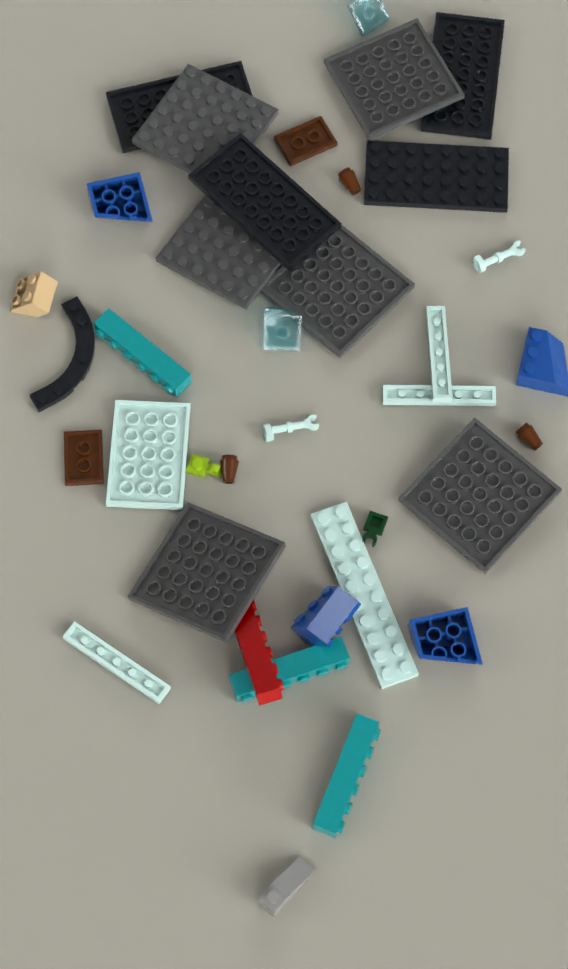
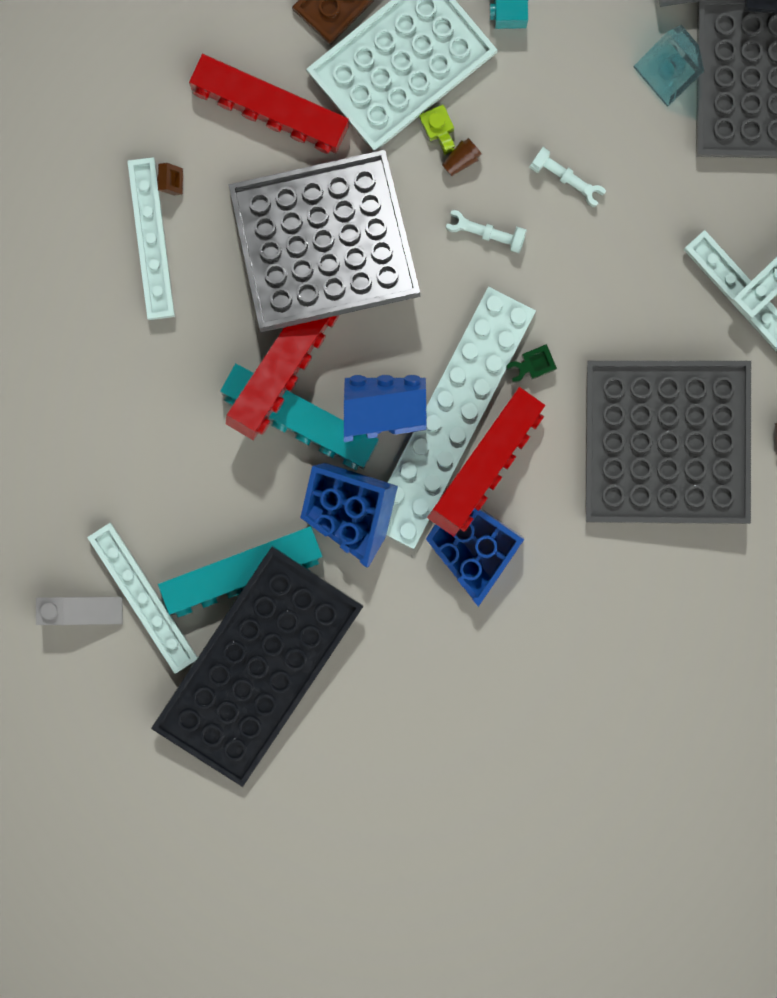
camera: 45 degrees right, 20 degrees up
(94, 623) = (170, 179): none -> reddish brown plate
(105, 538) = (269, 104): none -> red brick
(281, 489) = (488, 232): none -> light aqua piece
(312, 843) = (142, 598): none -> light aqua plate
(366, 685) = (349, 509): none -> blue wedge
(407, 590) = (486, 462): none -> red brick
(409, 812) = (257, 666): none -> black plate

